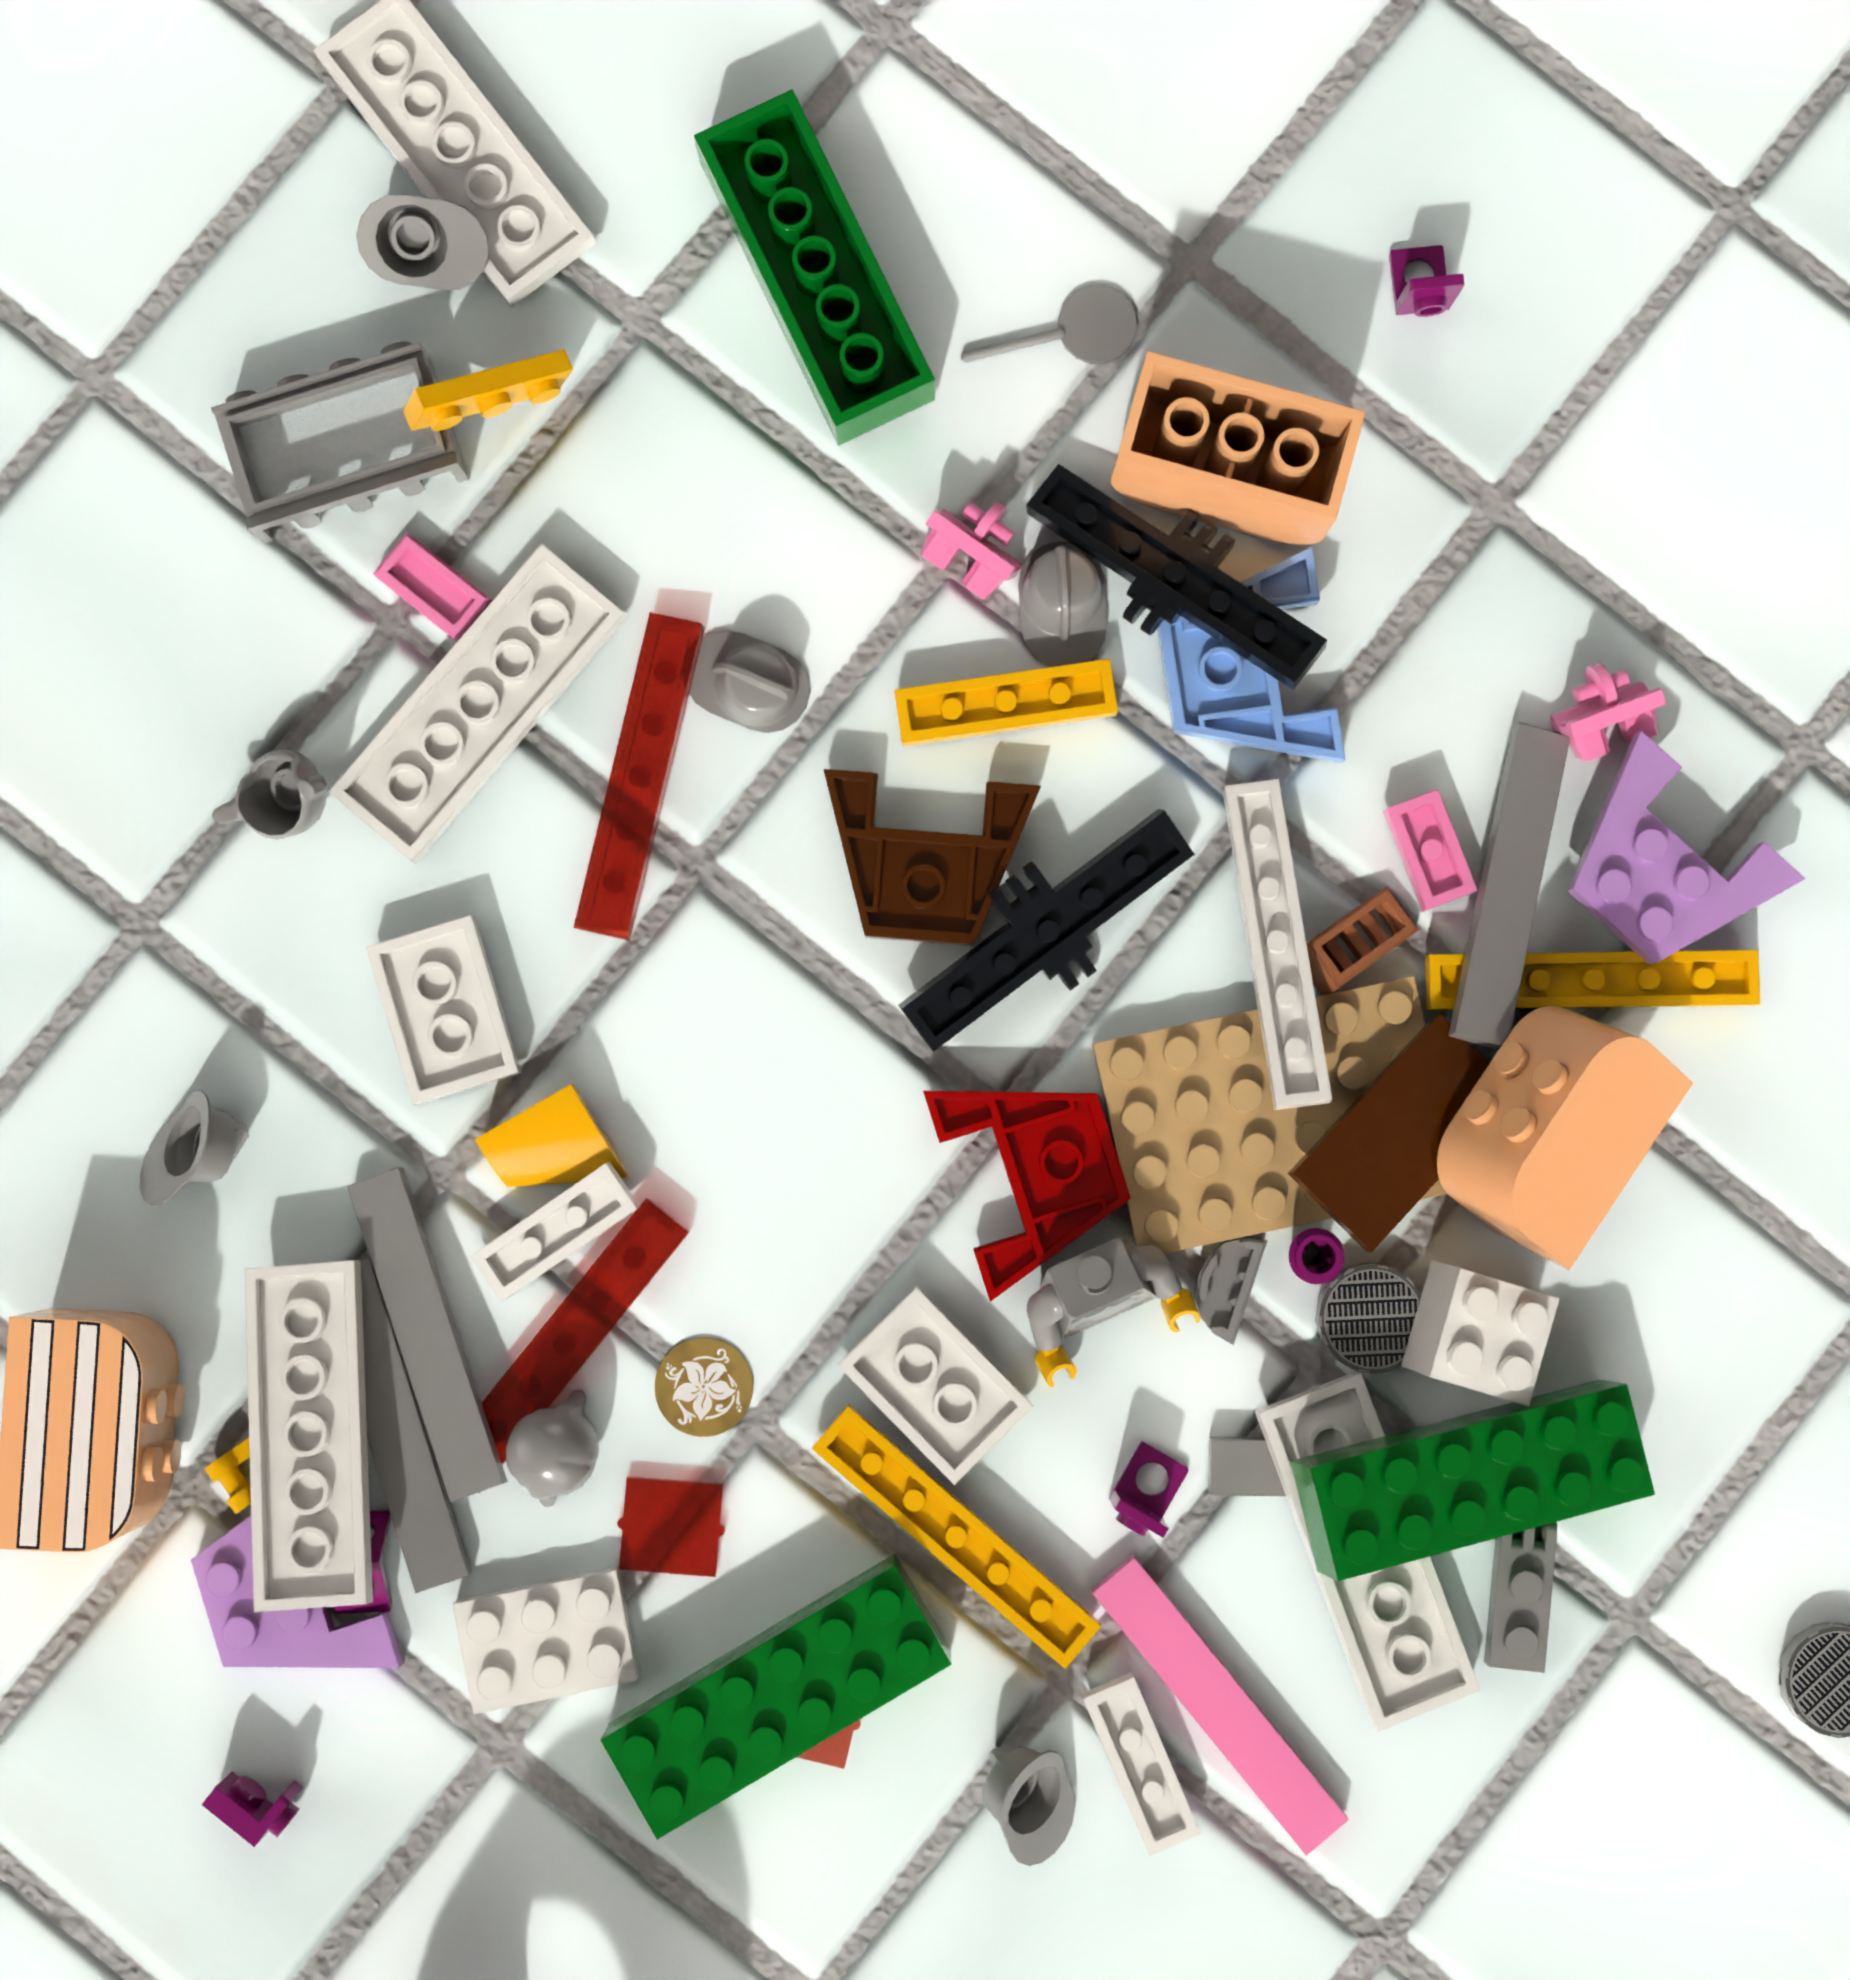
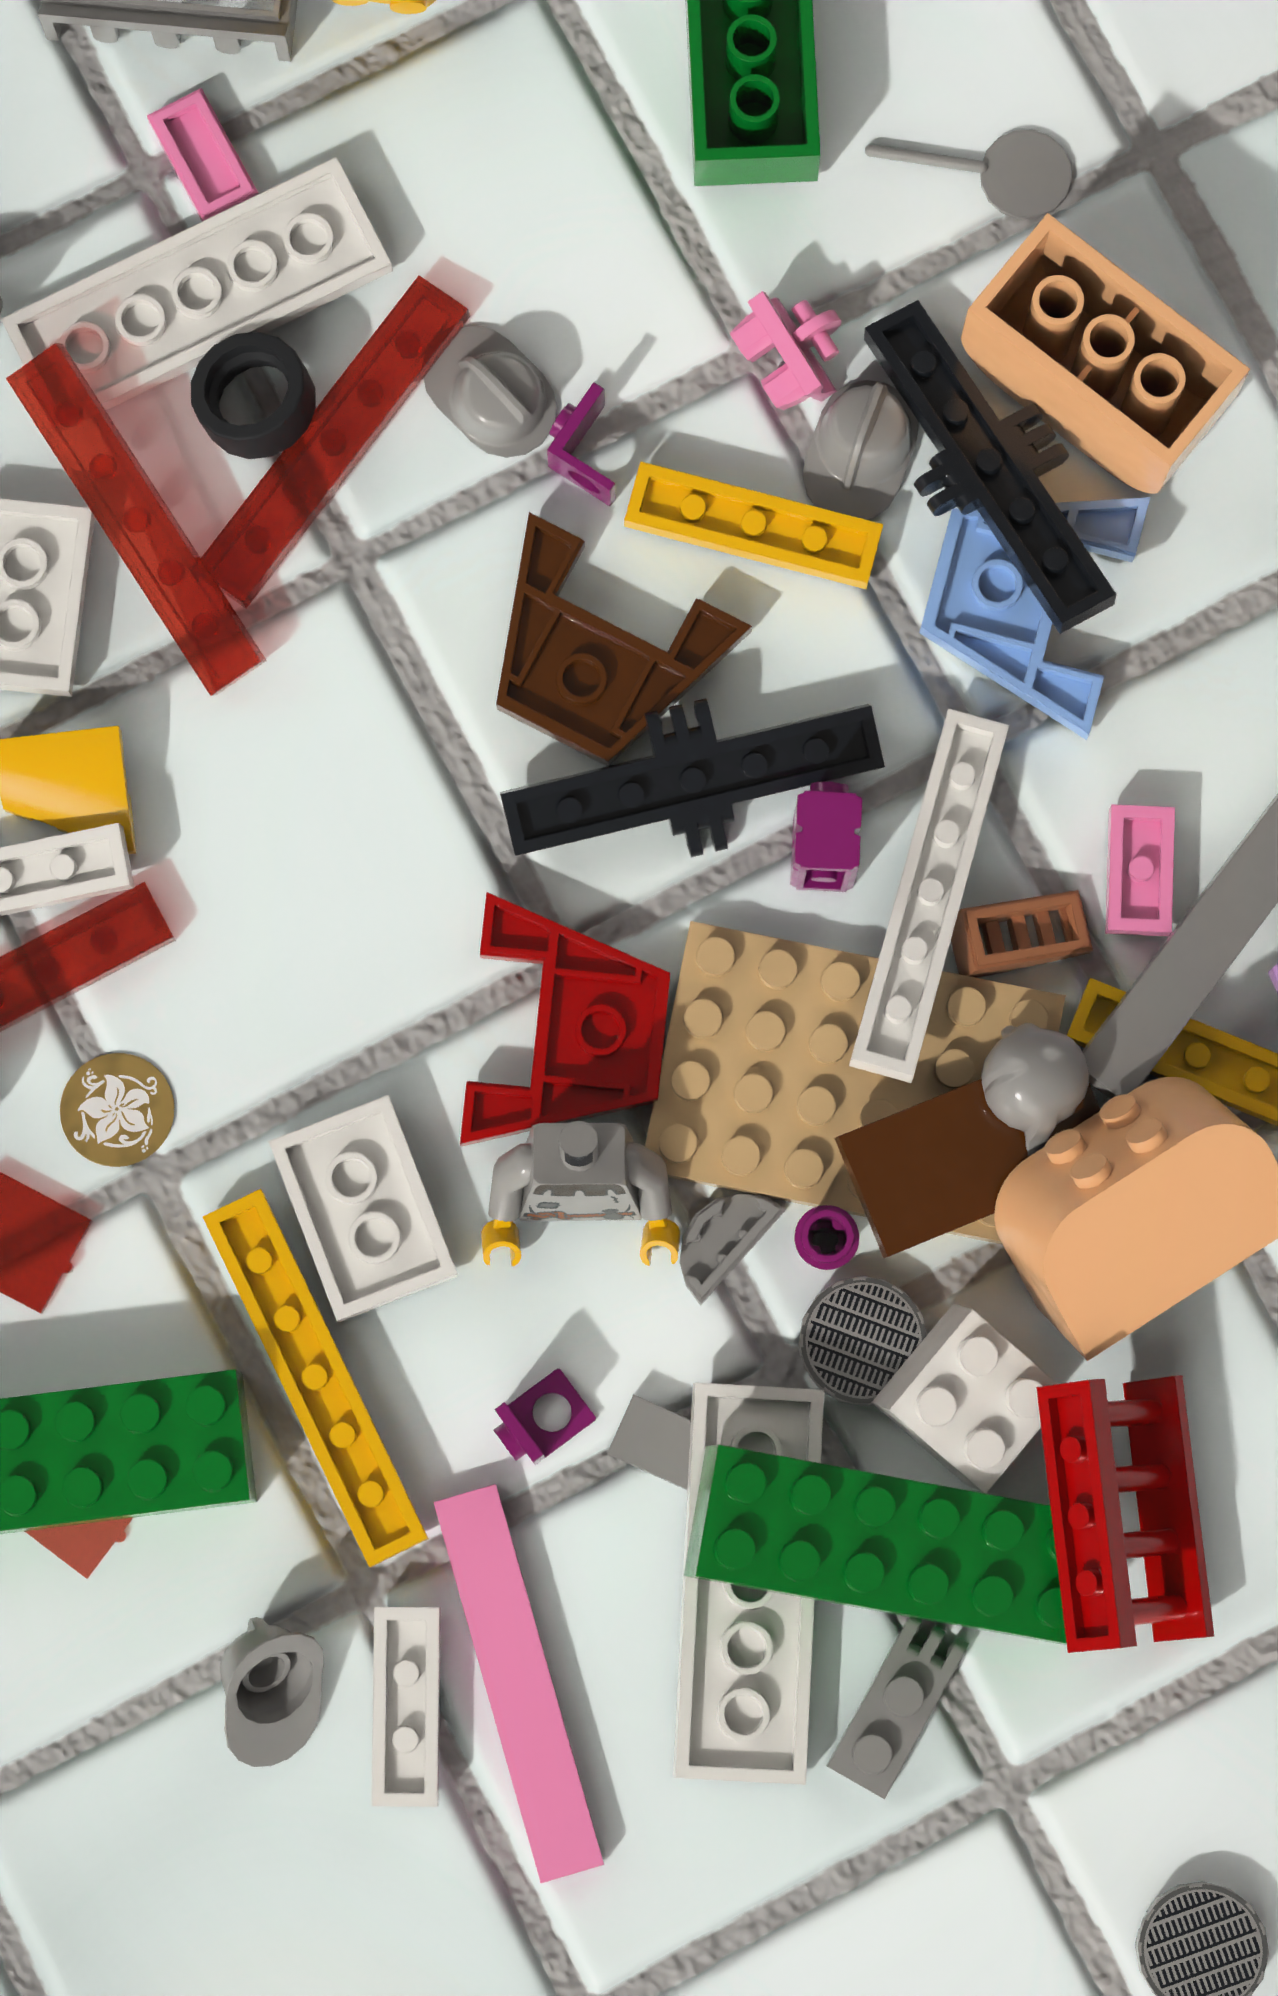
camera: 25 degrees right, 5 degrees down
(509, 908) = (136, 519): none -> clear red tile
(523, 755) = (232, 358): none -> black tyre
(825, 689) = (568, 432): none -> magenta bracket
(1177, 933) = (826, 838): none -> magenta brick
(1428, 1061) = (1034, 1080): none -> light grey hair
(1621, 1388) = (1089, 1520): none -> red fence

